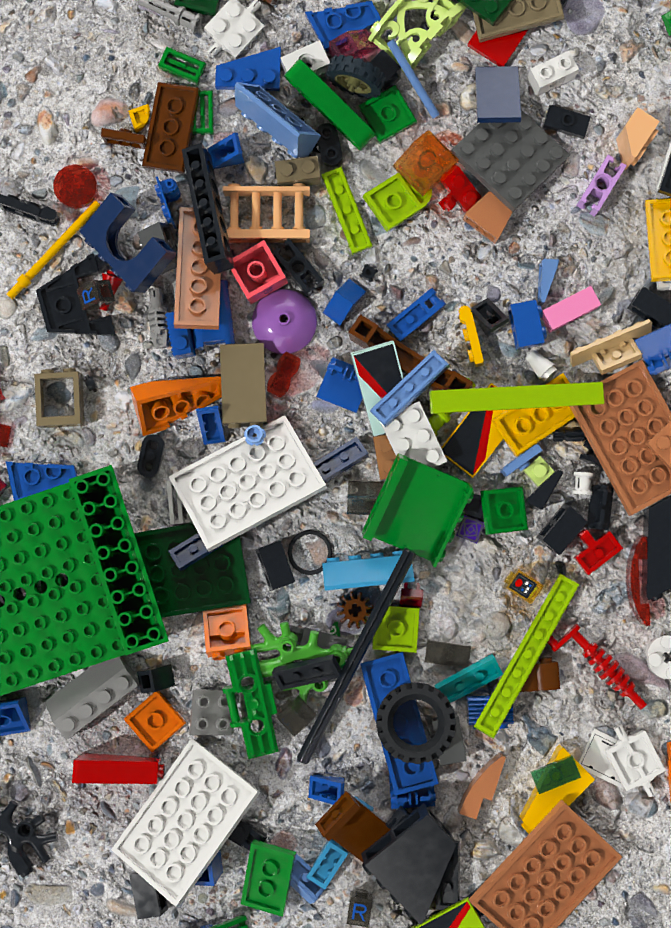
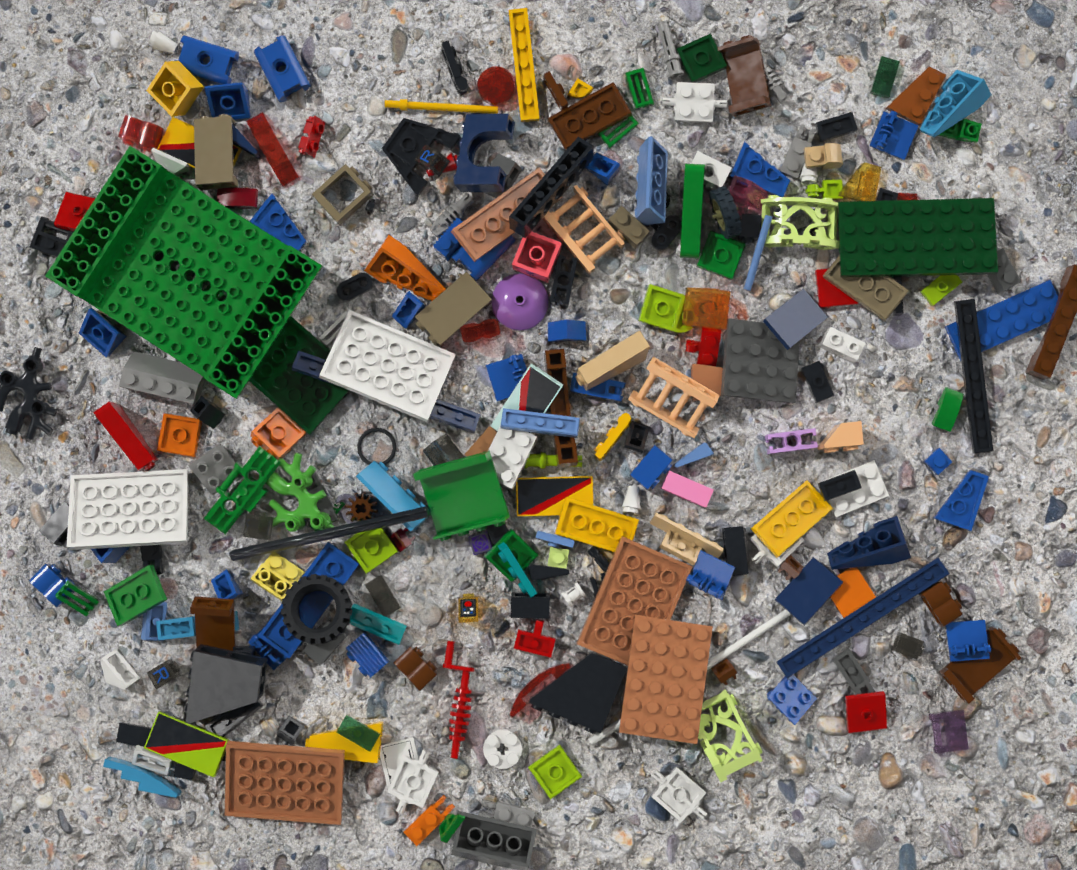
camera: 55 degrees right, 0 degrees up
(77, 147) = (524, 65): none -> yellow plate
(167, 192) = (540, 150): blue hinge -> none
(250, 431) = (424, 340): light blue plate -> none
(255, 69) = (676, 140): blue wing -> none
(275, 565) = (348, 431): black hinge -> none
(307, 672) = (292, 509): black plate -> none
(346, 210) = (631, 282): lime tile -> none
(354, 734) = (277, 575): none -> light yellow brick
(368, 273) = (600, 331): black piece -> none
(407, 280) = (613, 361): none -> tan slope
(466, 239) = (674, 379): none -> light nougat fence
(481, 787) = (311, 691): nougat slope -> none
(501, 834) = (290, 730): none -> black slope
(516, 397) = (592, 500): lime tile -> none
(522, 516) = (516, 570): none -> teal plate
(526, 656) = (423, 649): lime tile -> none
(600, 507) = (567, 620): black hinge -> none

